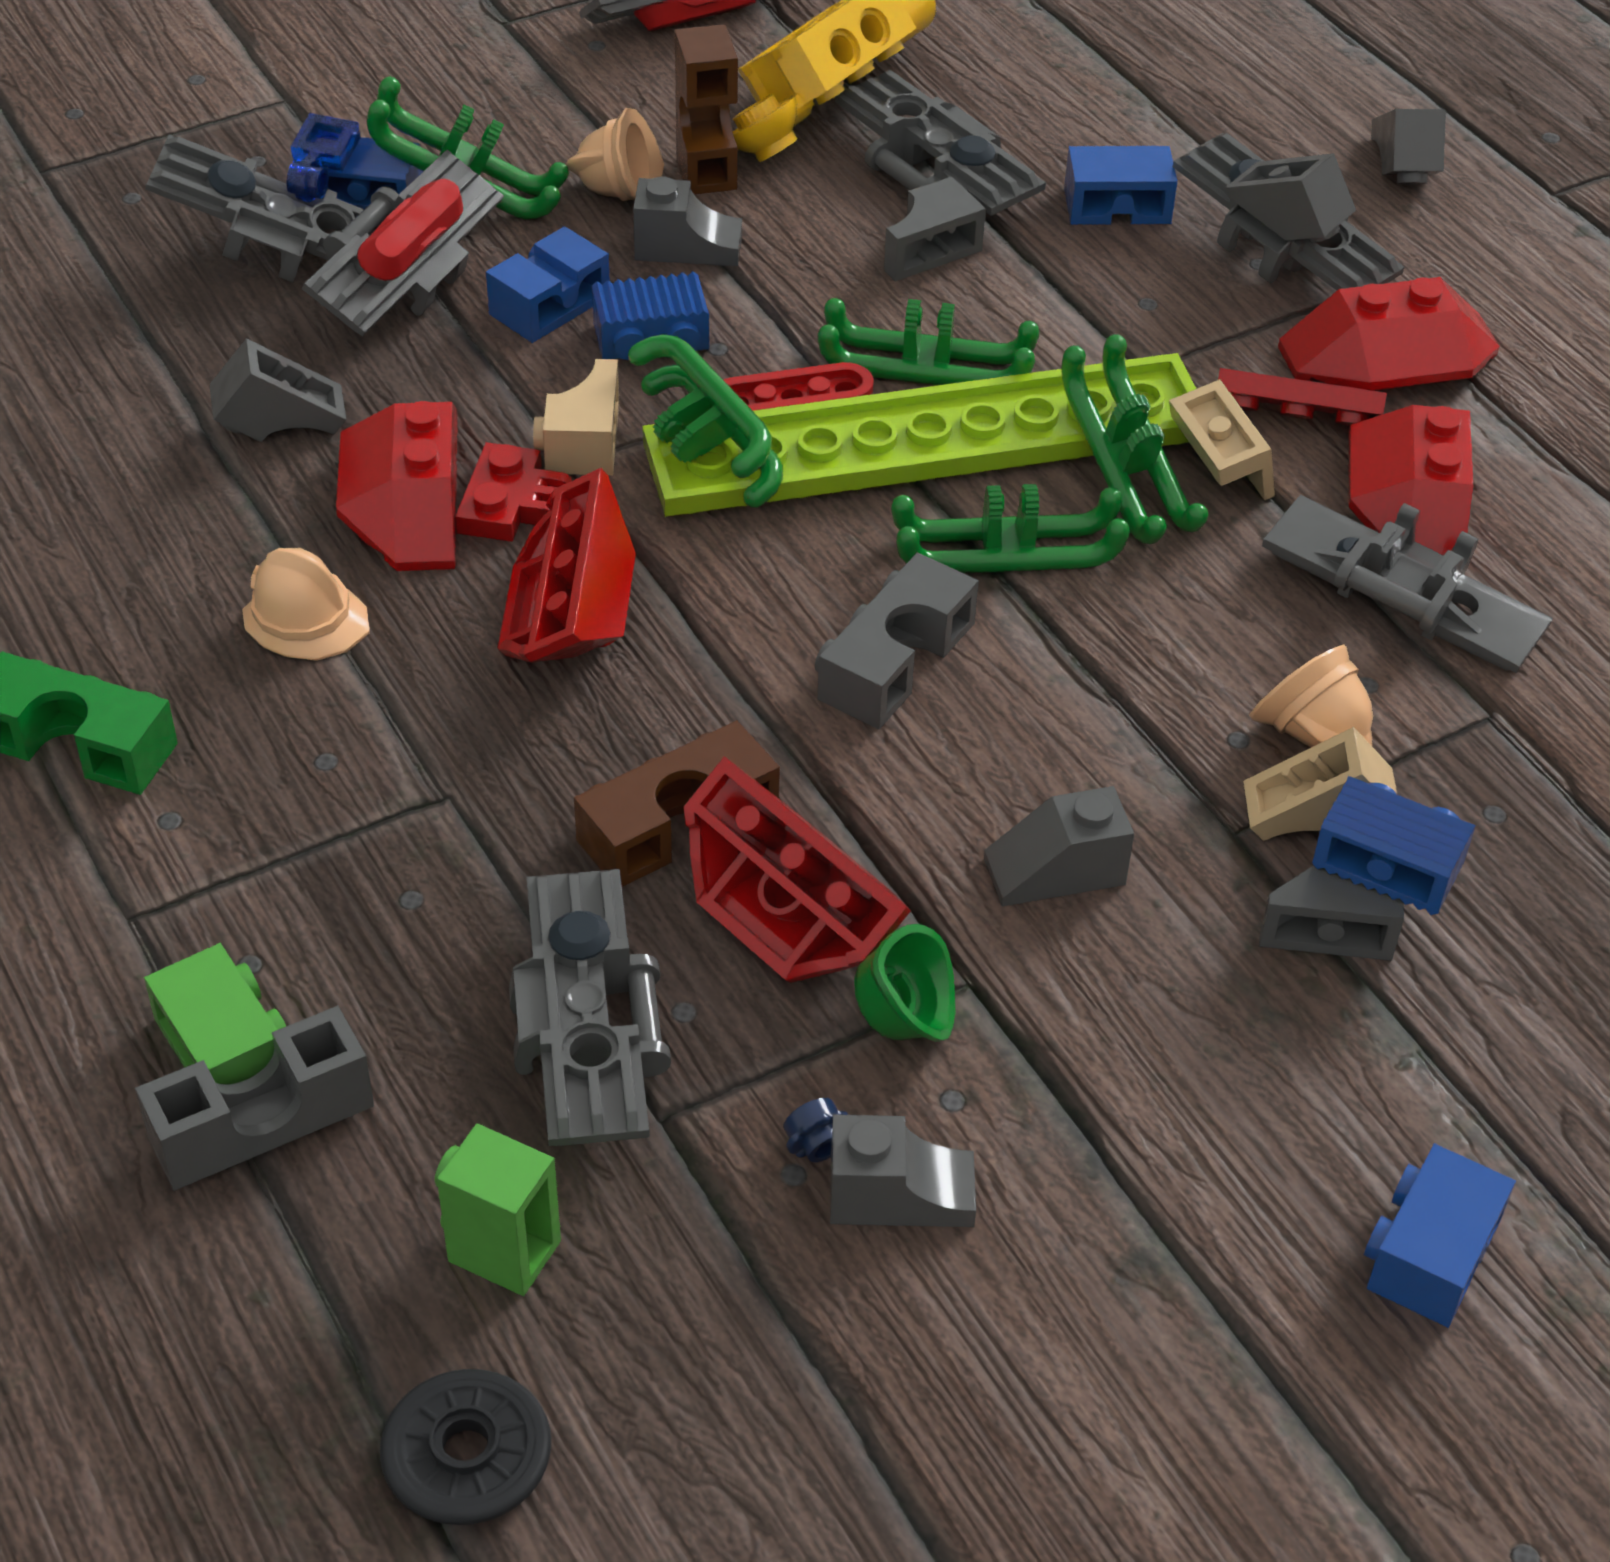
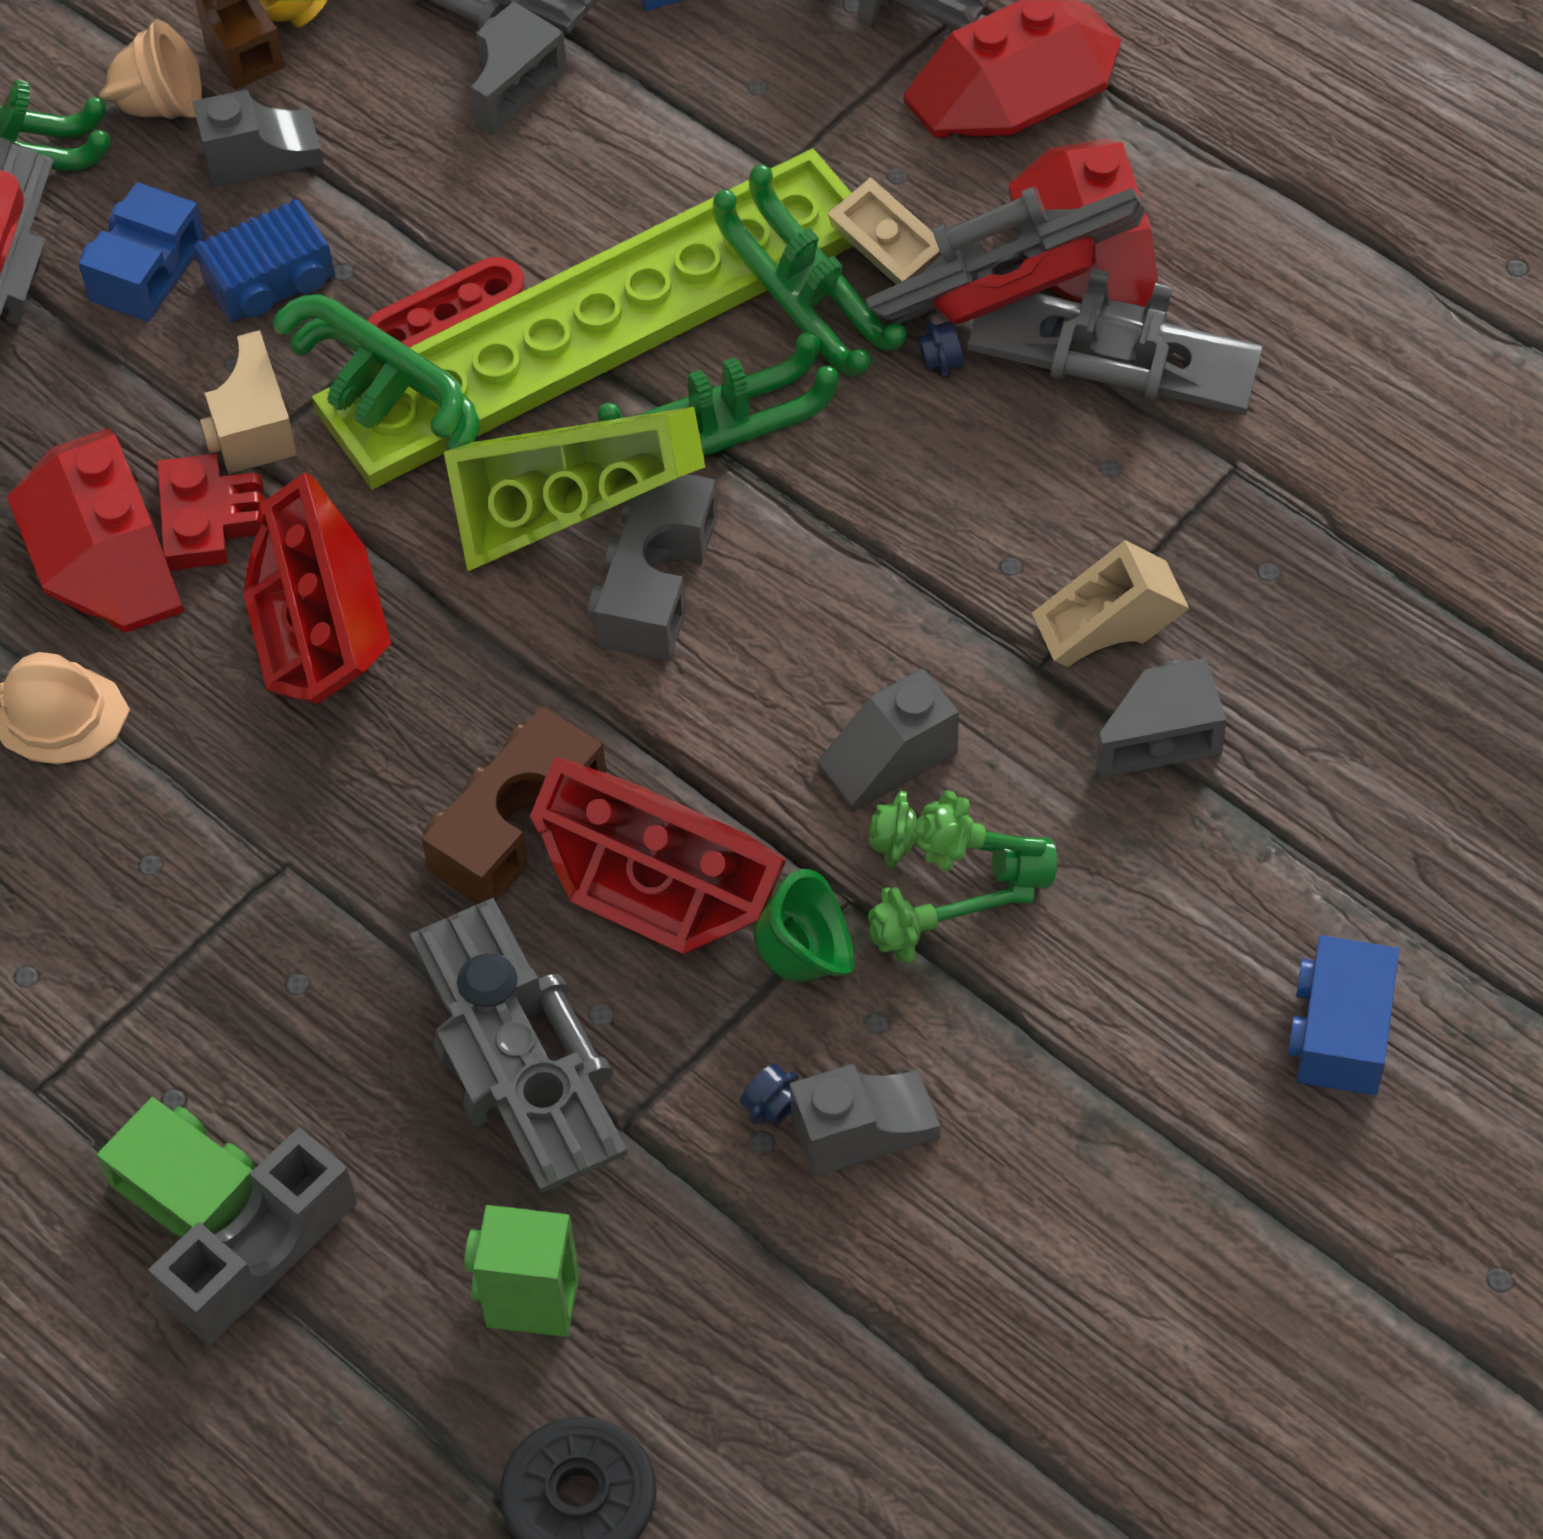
camera: 15 degrees left, 10 degrees up
(826, 534) = (548, 480): none -> lime wedge
(924, 355) = (560, 217): green piece -> none
(1071, 930) = (944, 835): none -> bright green plant
(1237, 540) = (941, 348): none -> dark blue plate
(1303, 397) = (949, 164): red plate -> none
(1318, 700) = (1083, 513): light nougat piece -> none
(1364, 472) = (1048, 251): none -> dark grey piece
(1393, 844) = (1198, 651): blue brick -> none

